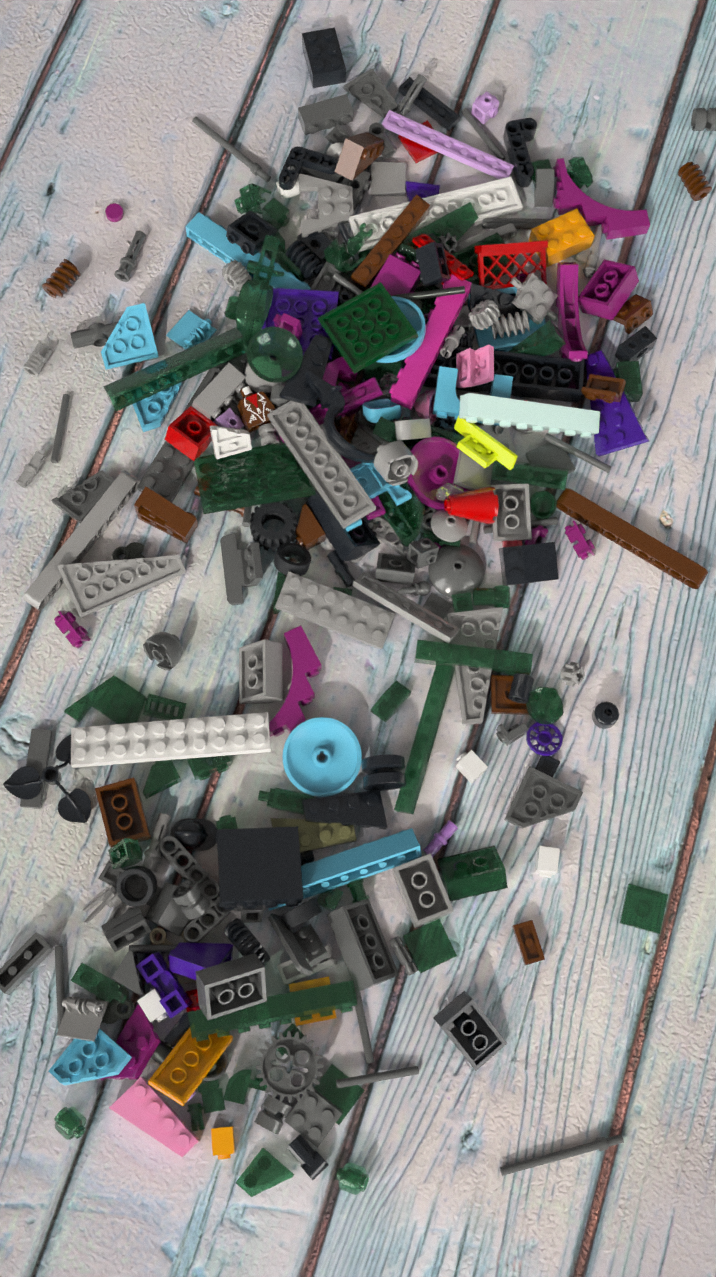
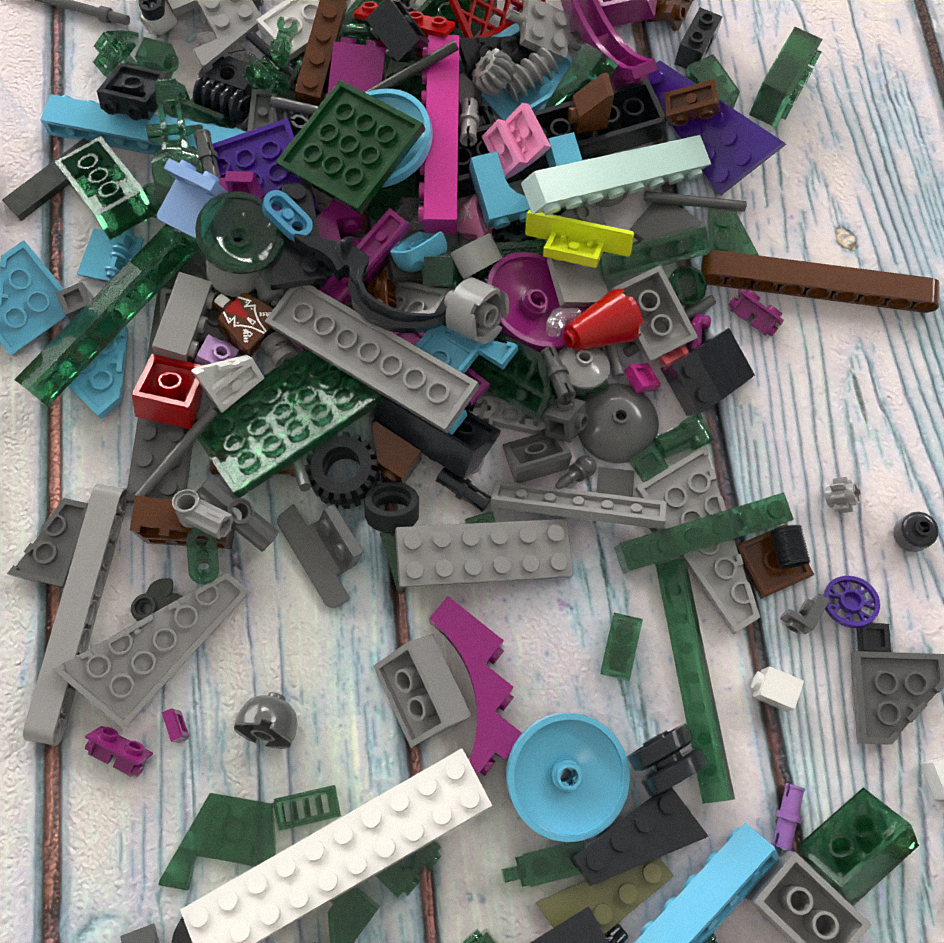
camera: 20 degrees left, 0 degrees up
(110, 632) = (175, 725): none -> magenta tile
(158, 352) = (74, 299): none -> dark grey panel
(169, 537) = (201, 553): none -> clear green plate
(176, 267) = (38, 188): none -> pearl dark grey tile
(178, 513) = (201, 514): none -> light grey piece
(181, 471) = (178, 451): none -> dark grey bar
(204, 533) = (251, 526): none -> dark grey piece
(207, 288) = (106, 187): none -> clear green brick
(235, 275) = (136, 155): light grey gear -> none
(253, 319) = (187, 196): none -> light blue bracket
(278, 296) = (206, 151): none -> dark grey pin
(308, 357) = (288, 216): none -> dark azure plate
(429, 523) = (558, 375): none -> dark grey pin
(485, 549) = (642, 377): none -> dark pink plate
(533, 364) = (592, 105): none -> reddish brown slope
(545, 705) = (830, 555): clear green dish -> none
(588, 483) = (728, 233): none -> clear green wing
(678, 397) = (785, 76): none -> clear green brick

